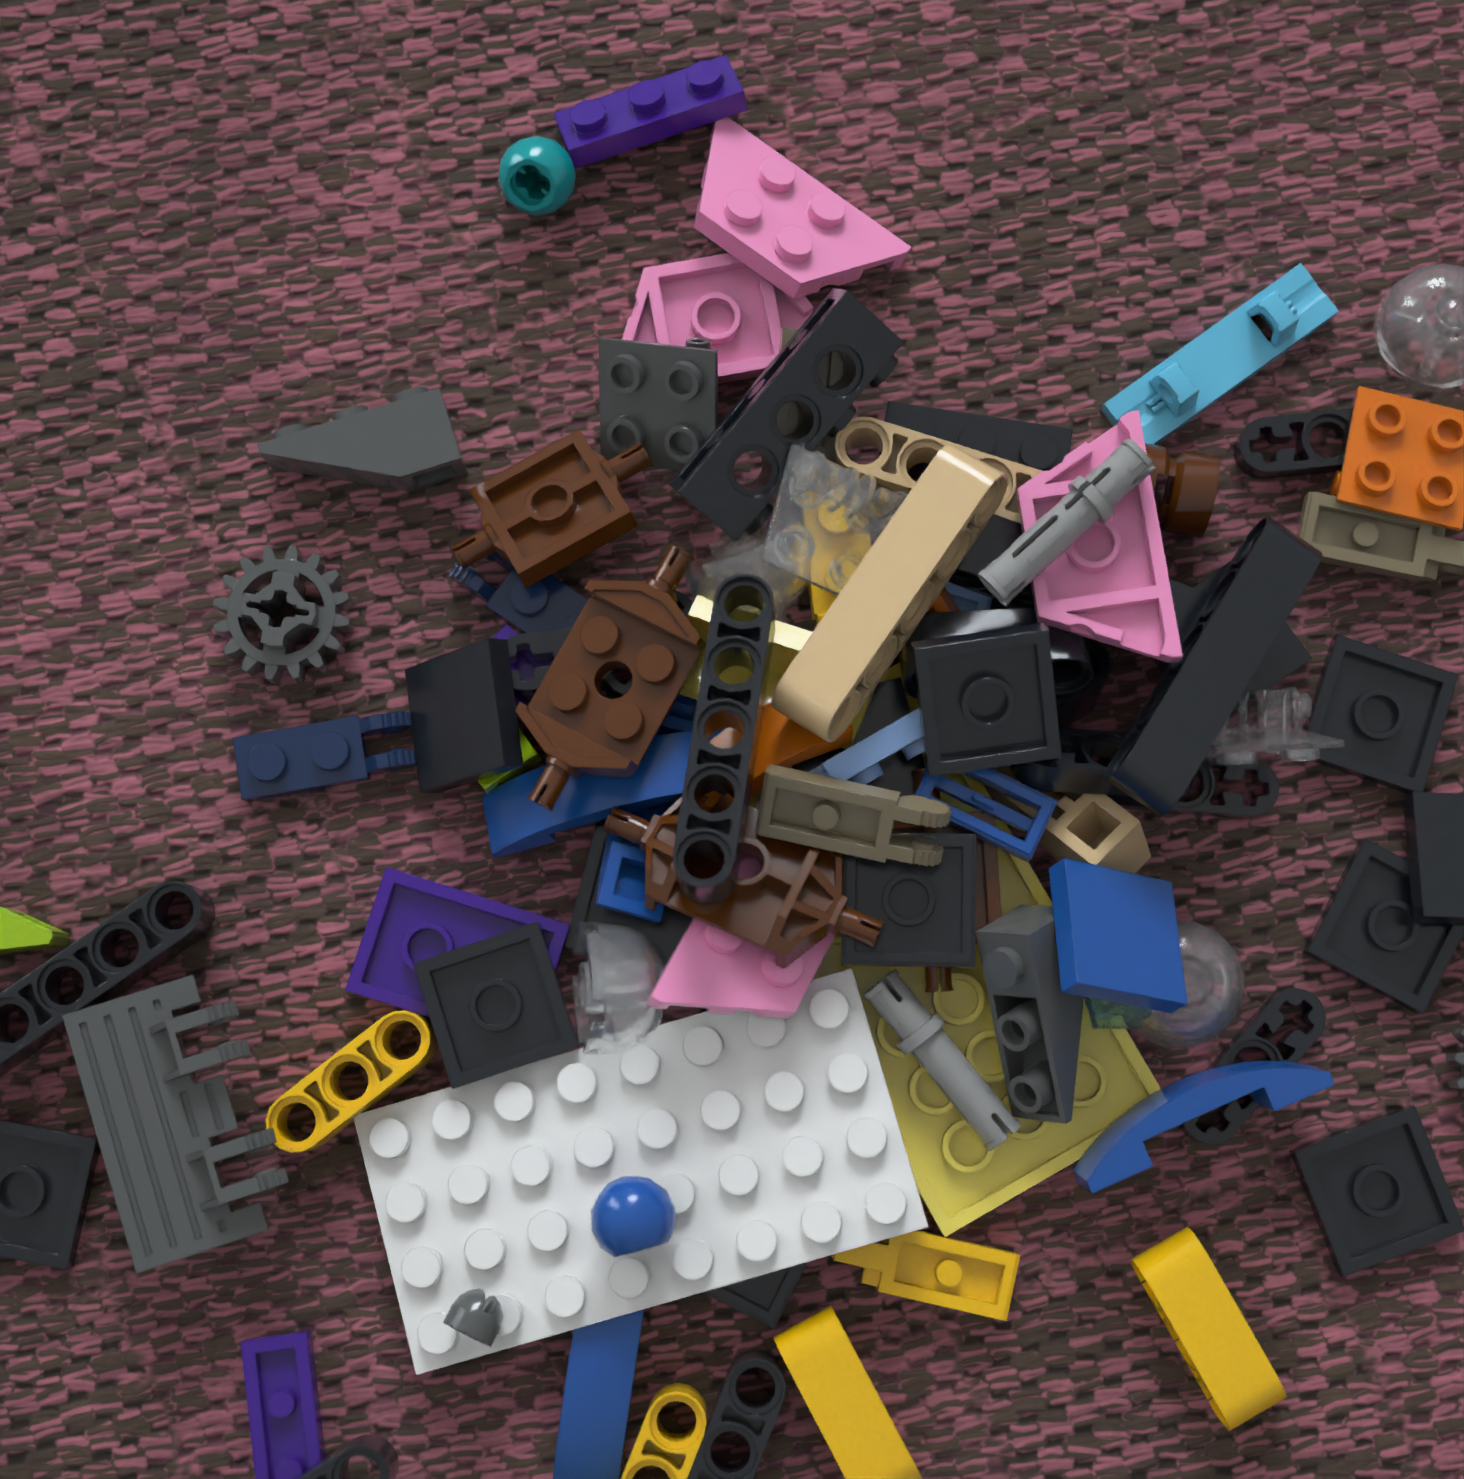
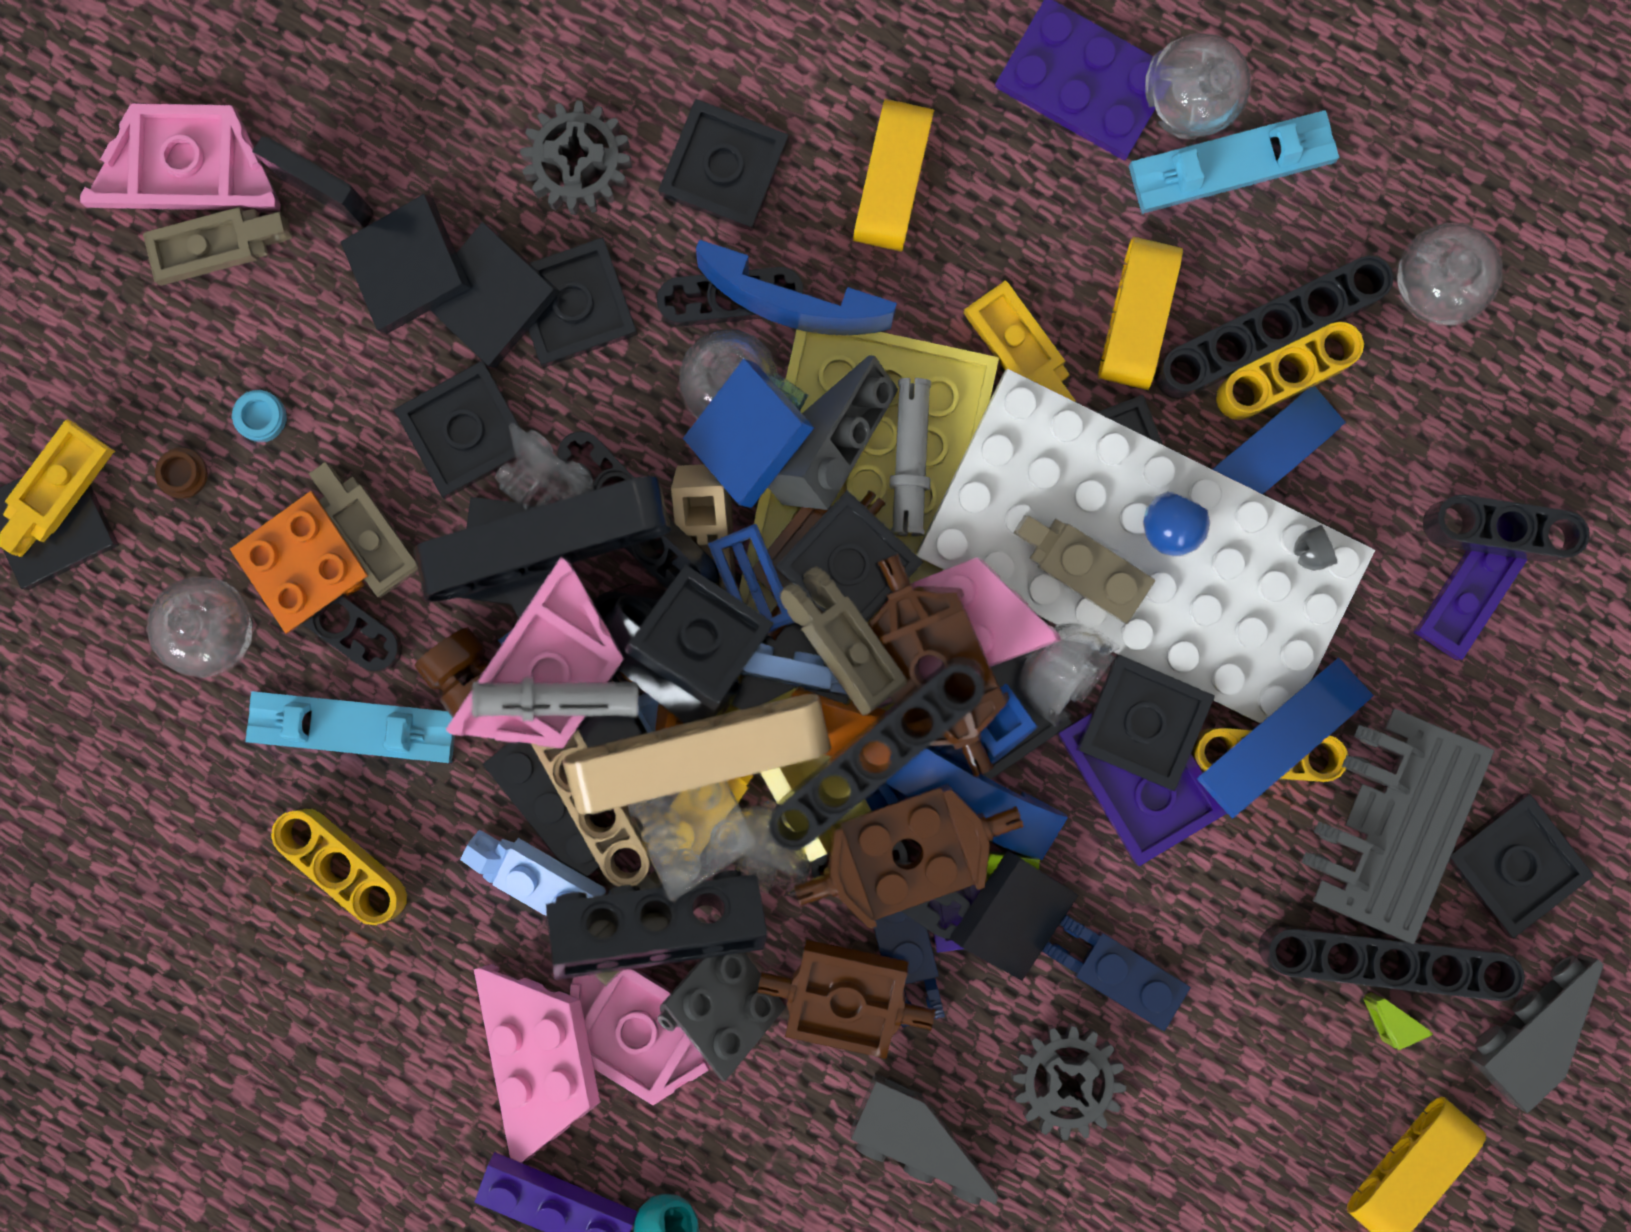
camera: 135 degrees left, 5 degrees up
(349, 1110) = (1285, 738): none -> blue slope
(682, 1100) = (1086, 567): none -> dark tan hinge
(943, 370) = (525, 871): none -> light blue hinge
(1139, 214) = (315, 863): none -> yellow beam

